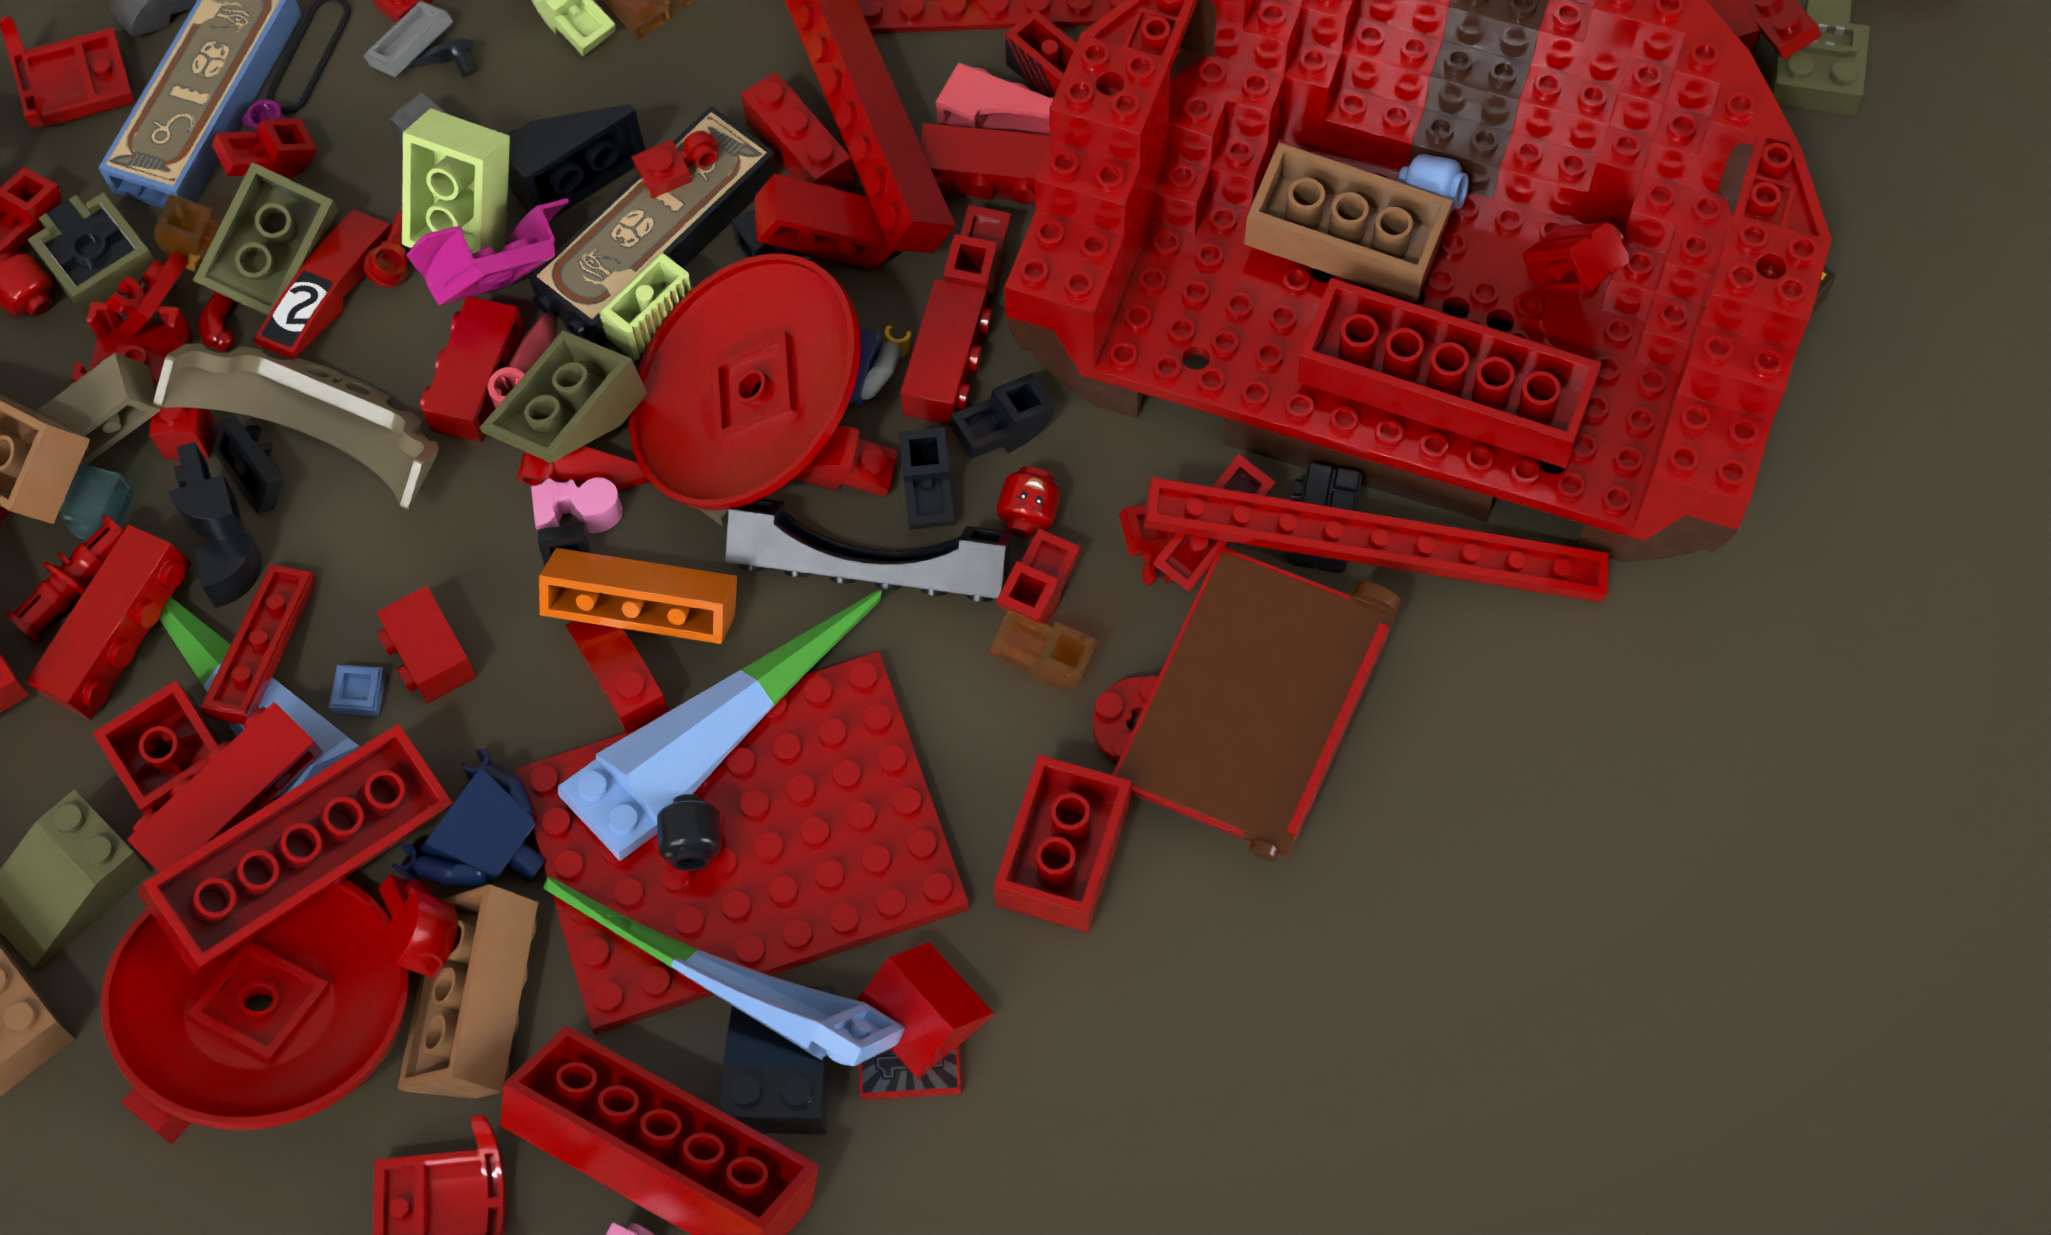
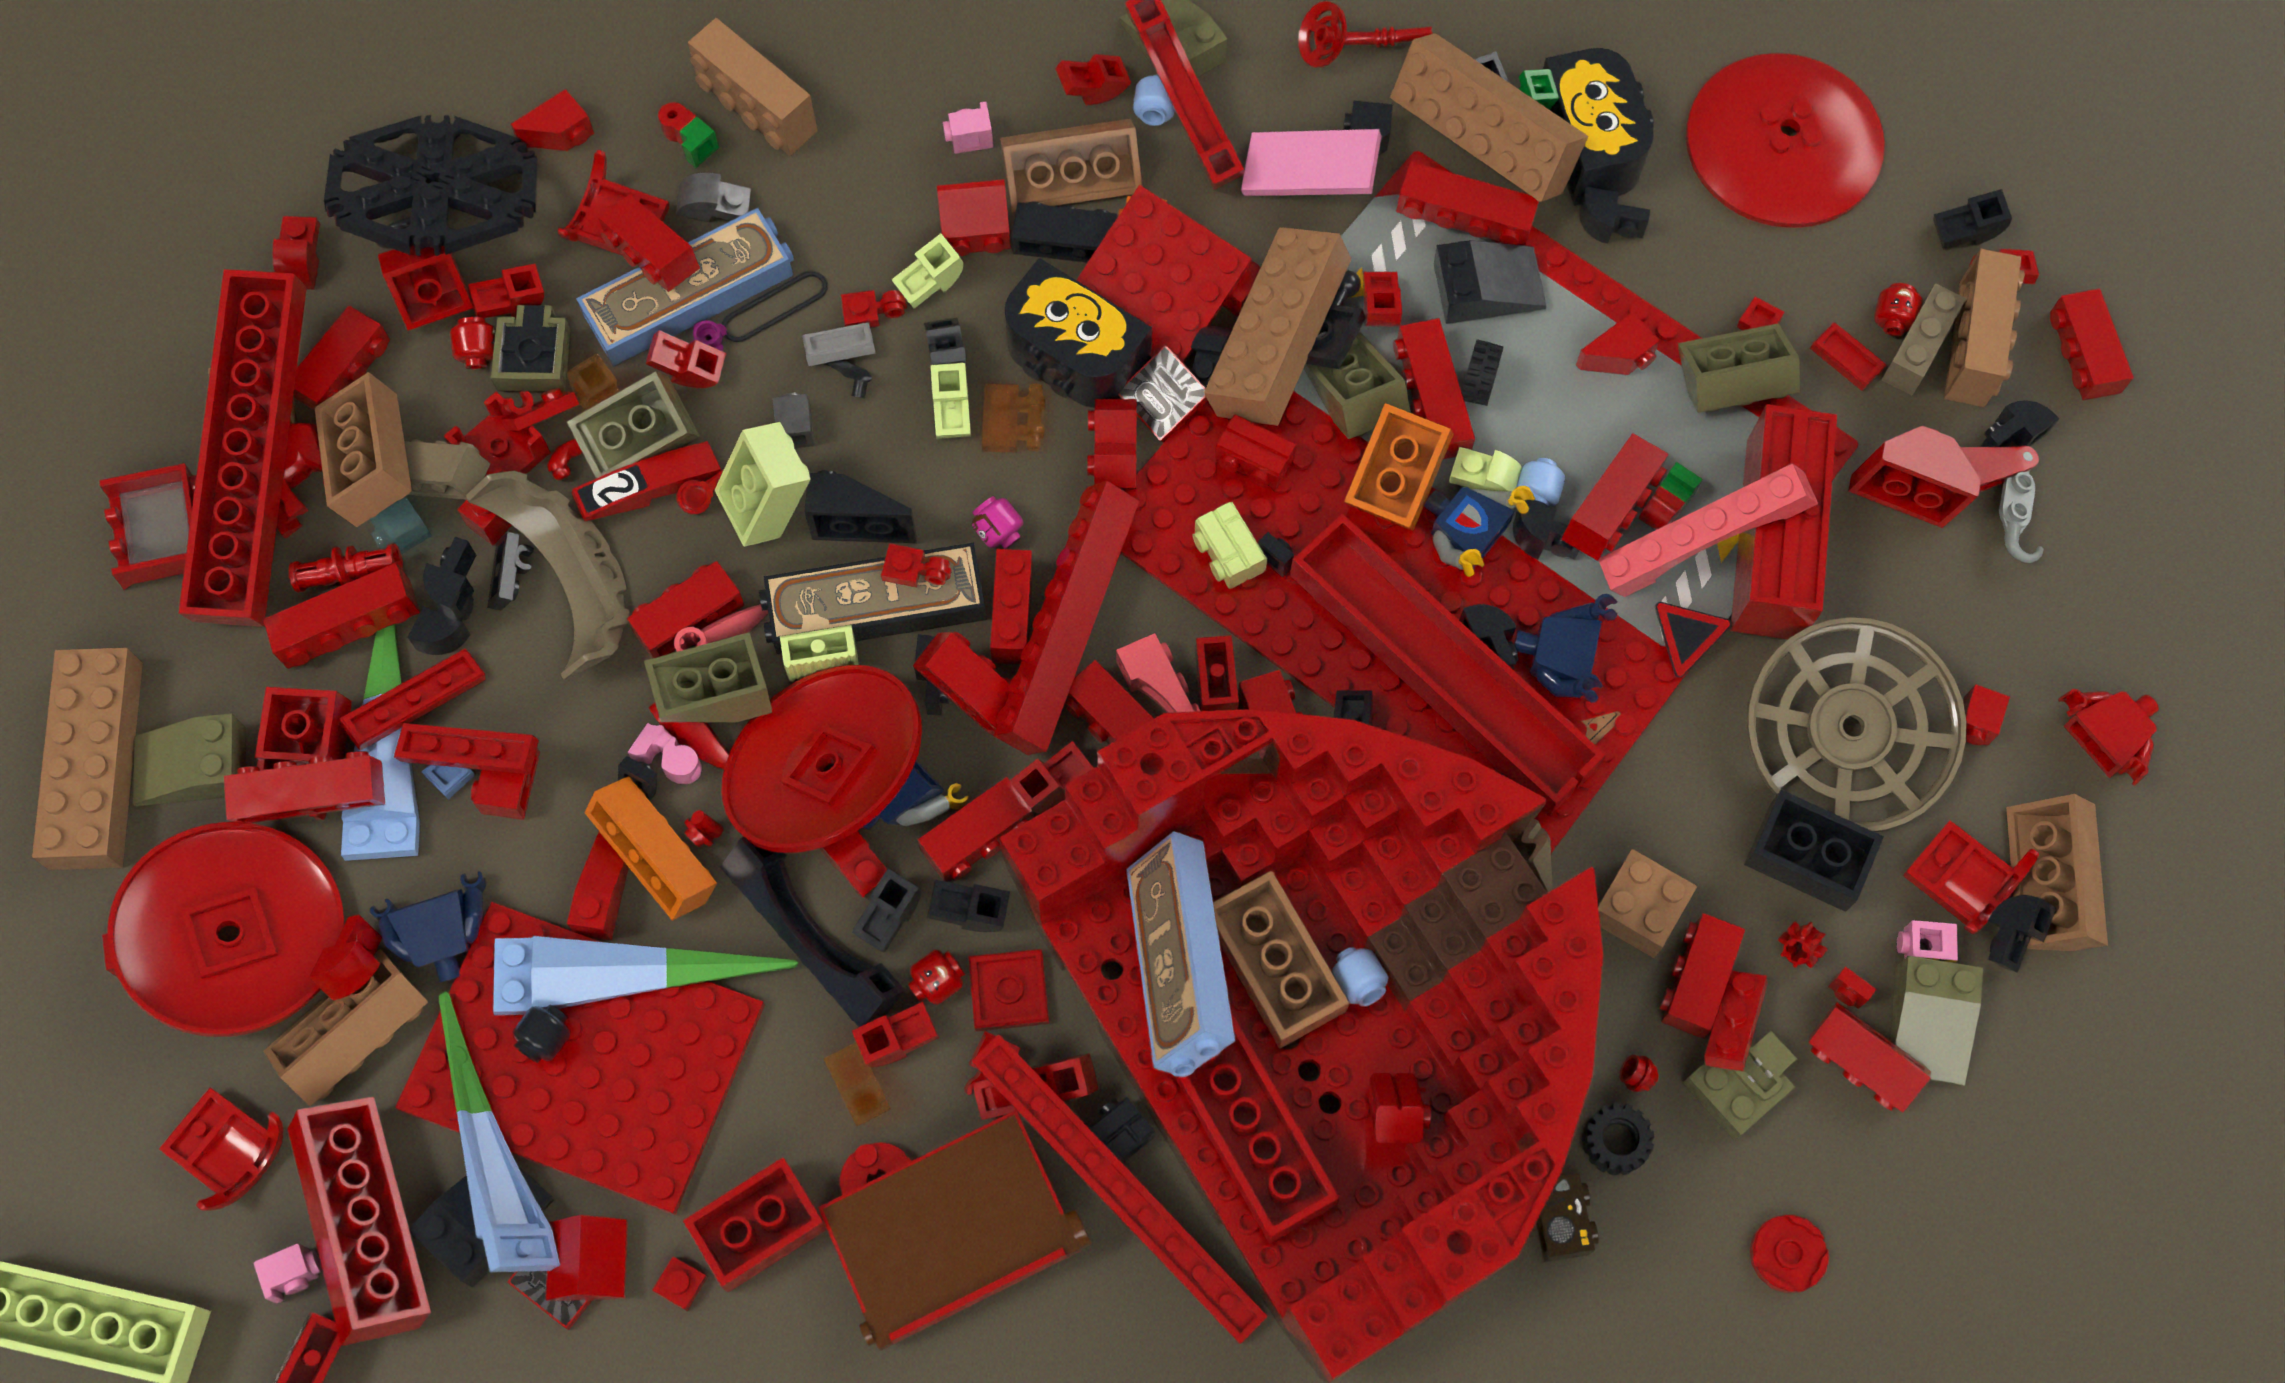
camera: 35 degrees right, 5 degrees up
(133, 63) = (648, 243): none -> red brick
(294, 849) = (311, 858): red brick -> none
(364, 637) = (466, 748): none -> red plate
(457, 273) = (774, 561): dark pink piece -> none
(672, 545) = (702, 829): none -> red plate
(714, 80) = (997, 522): none -> dark pink head
(1033, 962) = (679, 1283): none -> red plate
(1104, 468) = (1008, 990): none -> red tile
(1269, 263) = (1179, 955): none -> brick
(1988, 168) = (1789, 1253): none -> red tile

